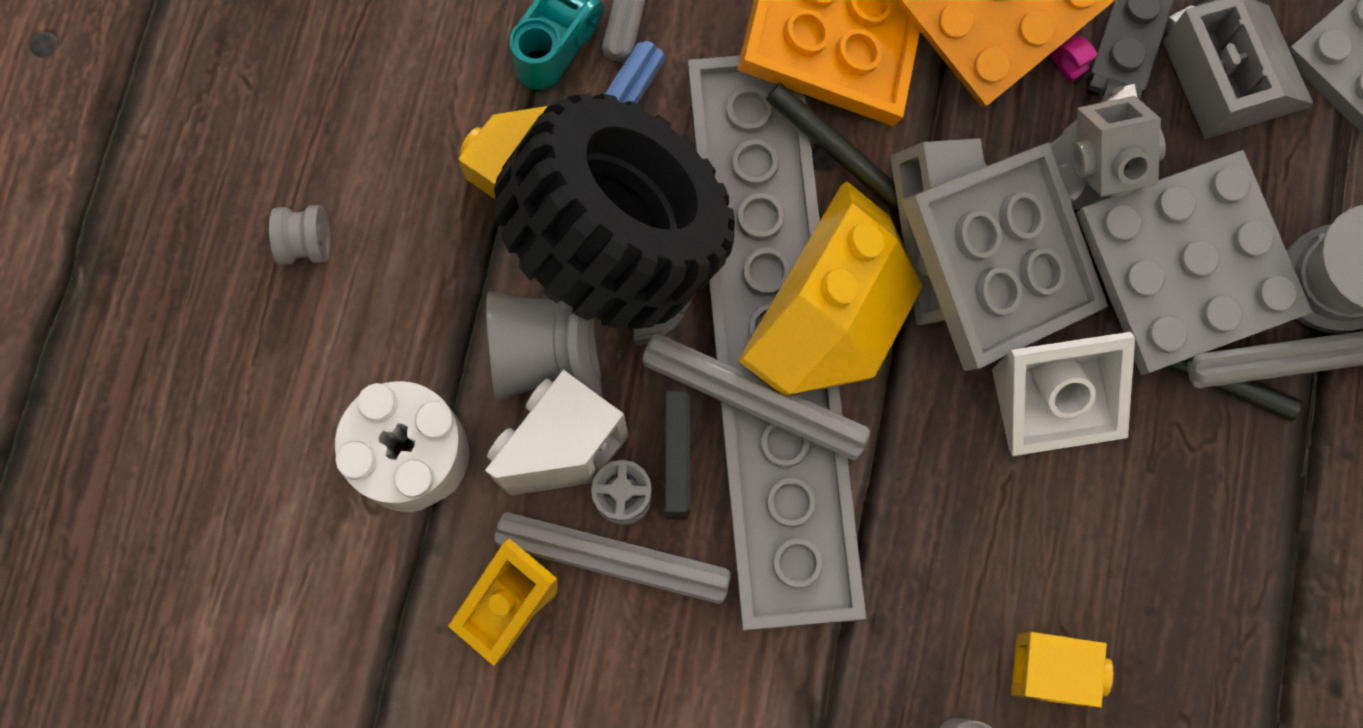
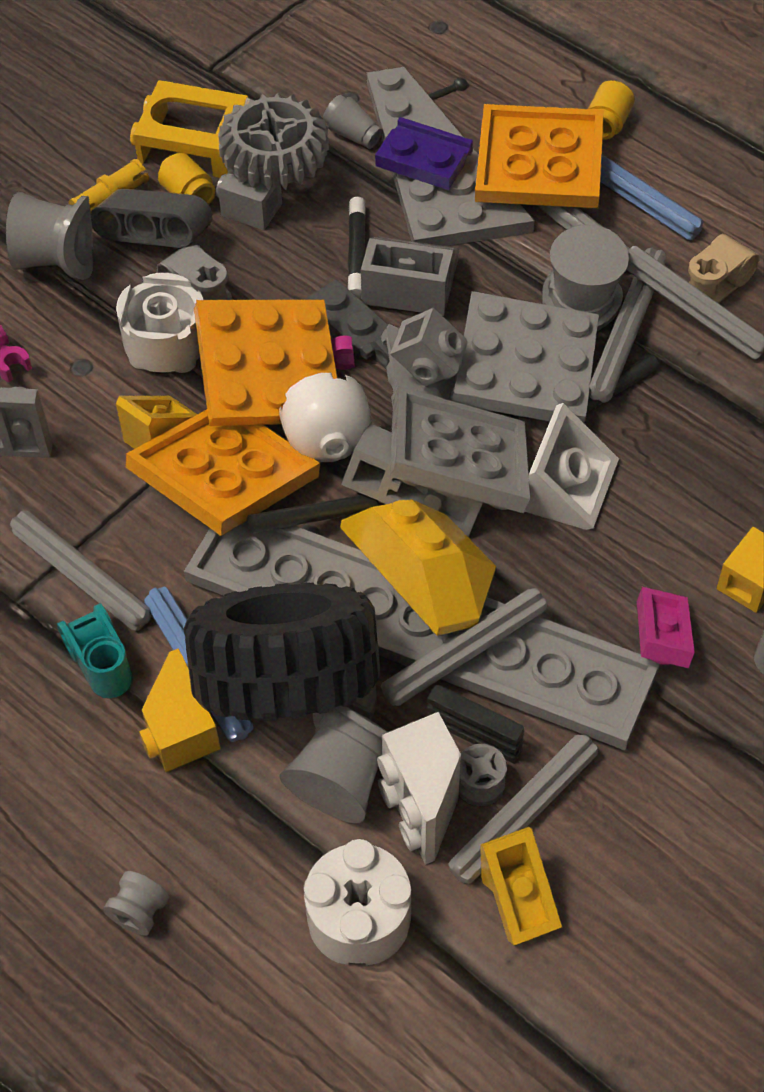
camera: 60 degrees left, 20 degrees down
(912, 603) = (665, 627): none -> dark pink plate
(958, 90) = (325, 416): none -> white cylinder

